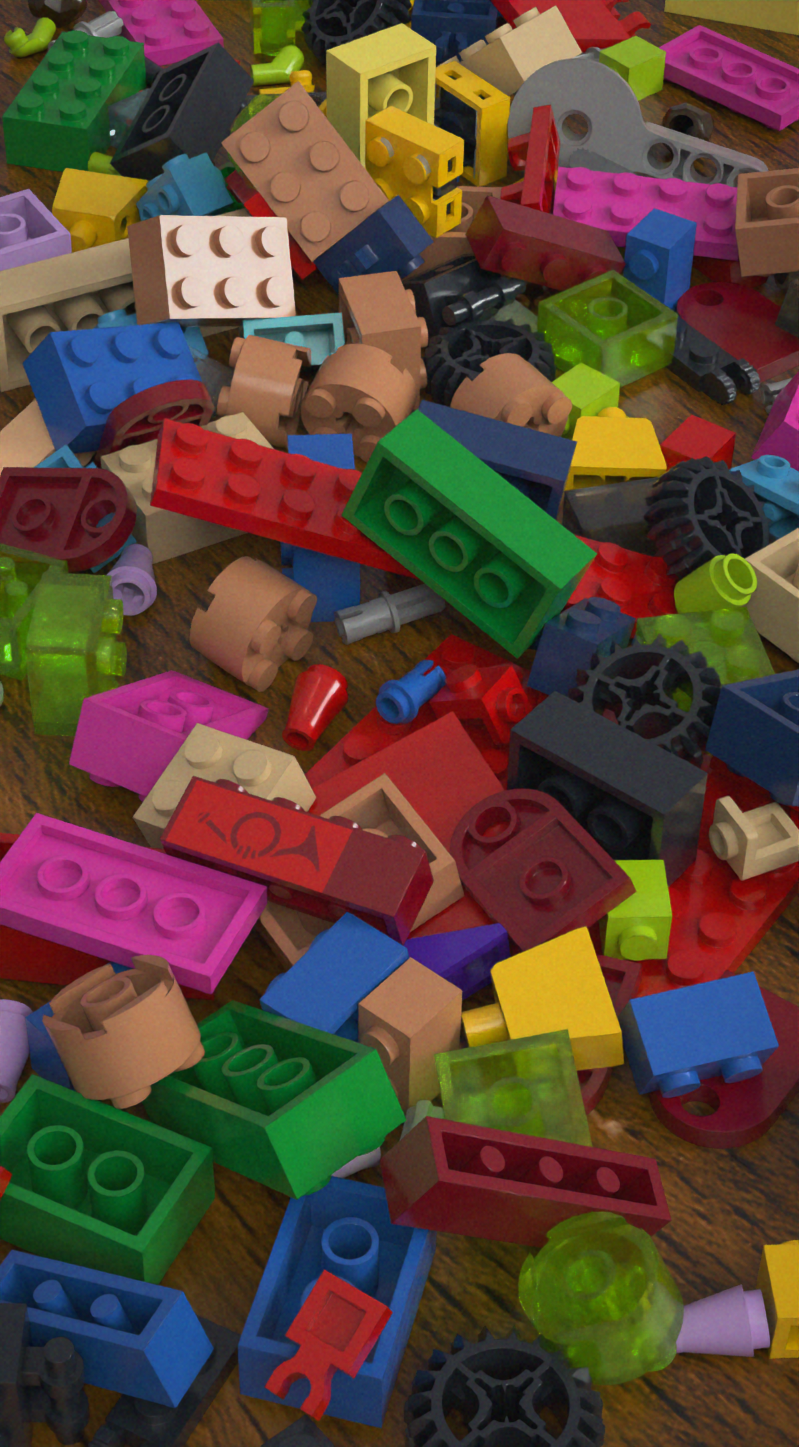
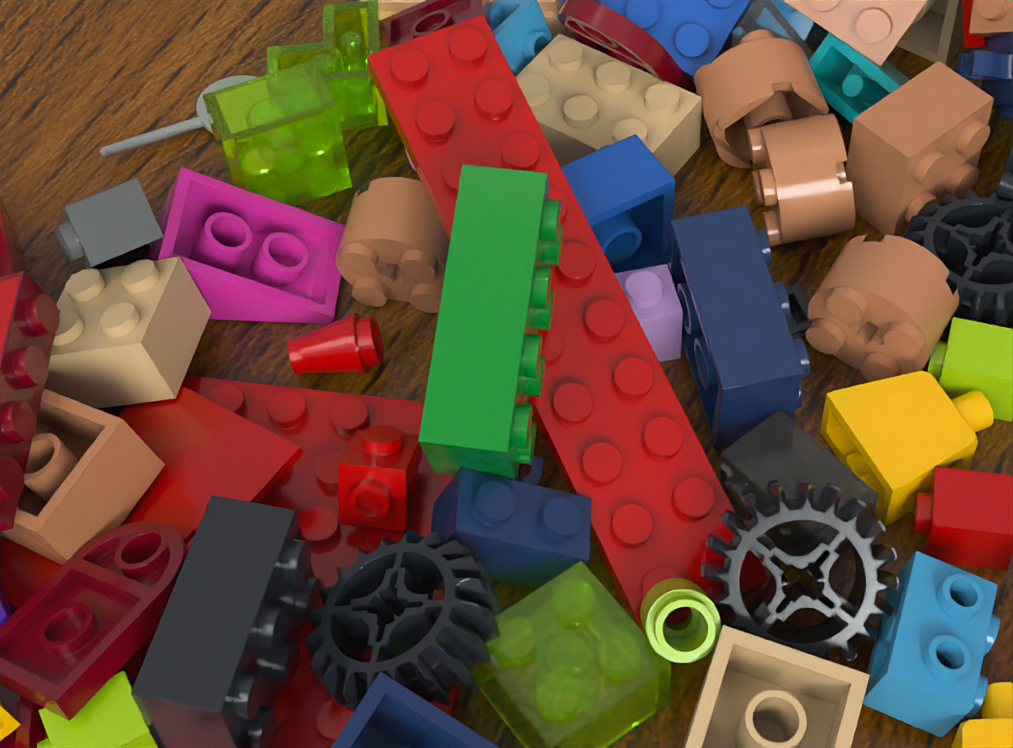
camera: 70 degrees right, 10 degrees up
(141, 747) = (107, 225): none -> dark grey arch
(401, 698) = (359, 407): blue pin -> none

